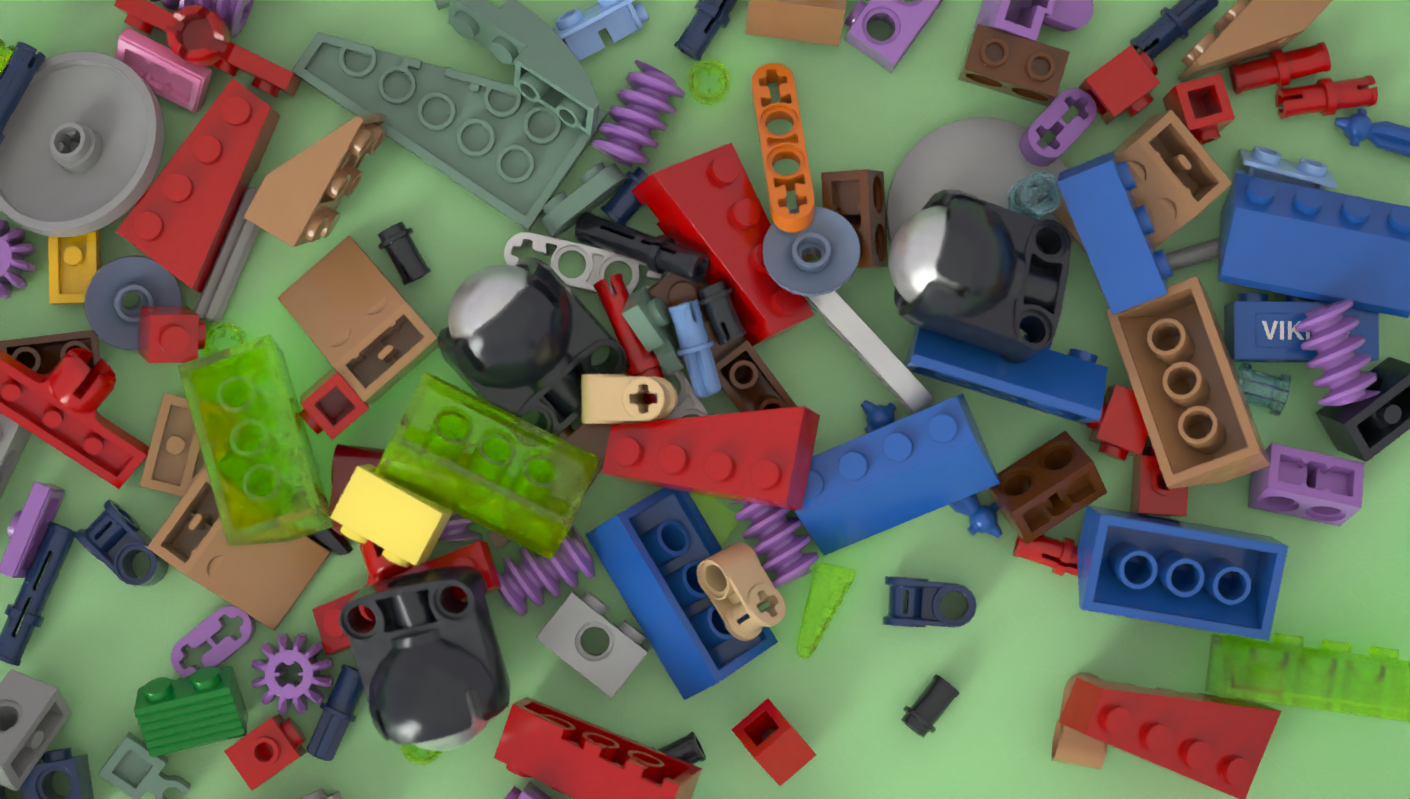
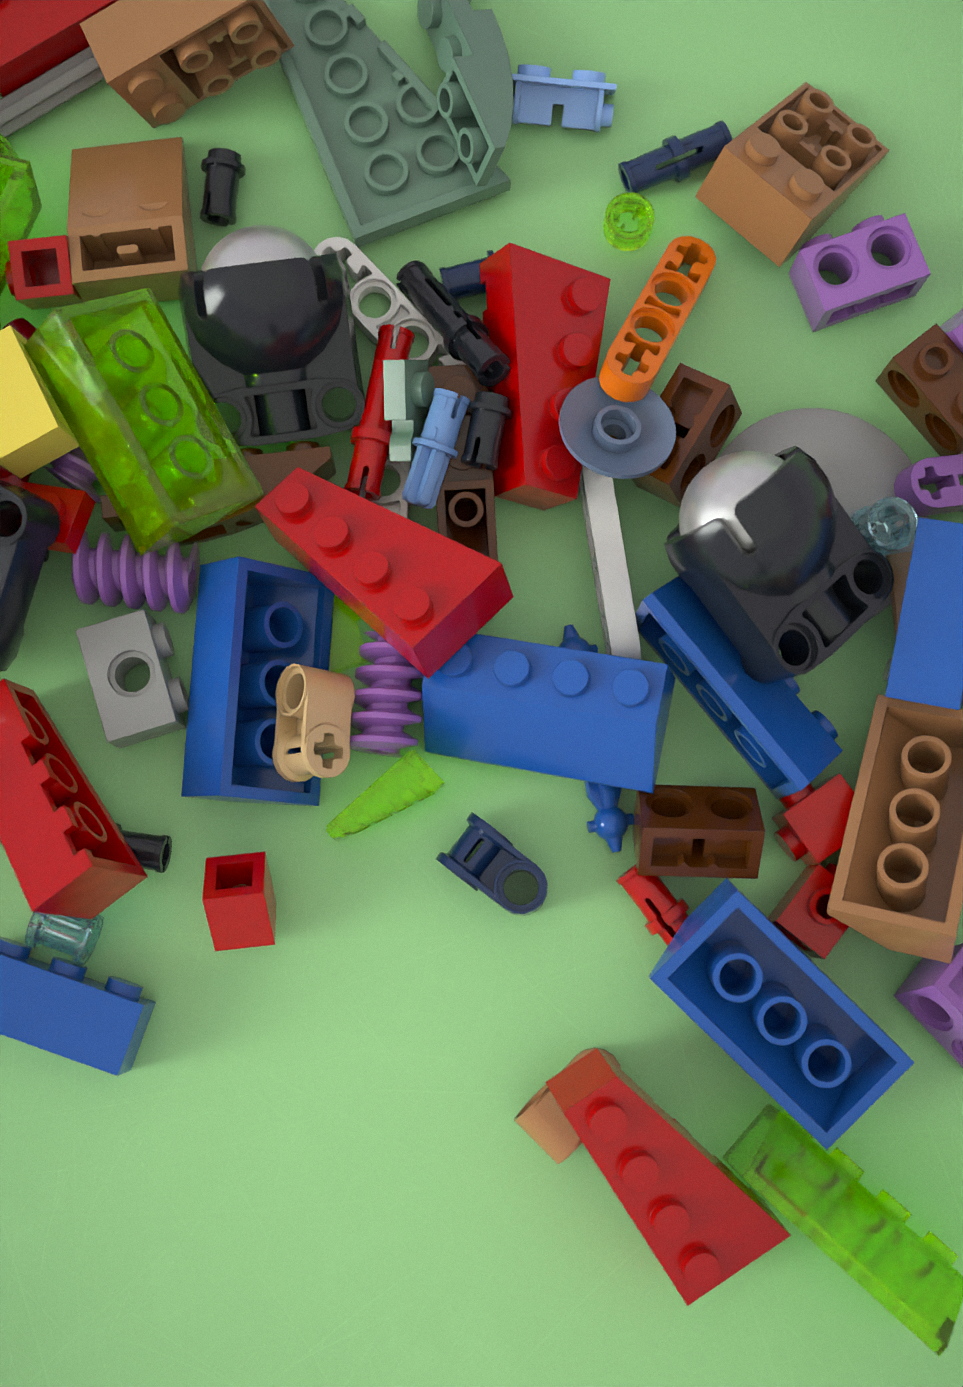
camera: 35 degrees right, 5 degrees down
(598, 185) = (437, 245): sand green plate -> none
(620, 398) = (326, 447): tan piece -> none
(638, 116) = (536, 200): medium lavender piece -> none
(929, 706) = (426, 976): black pin -> none

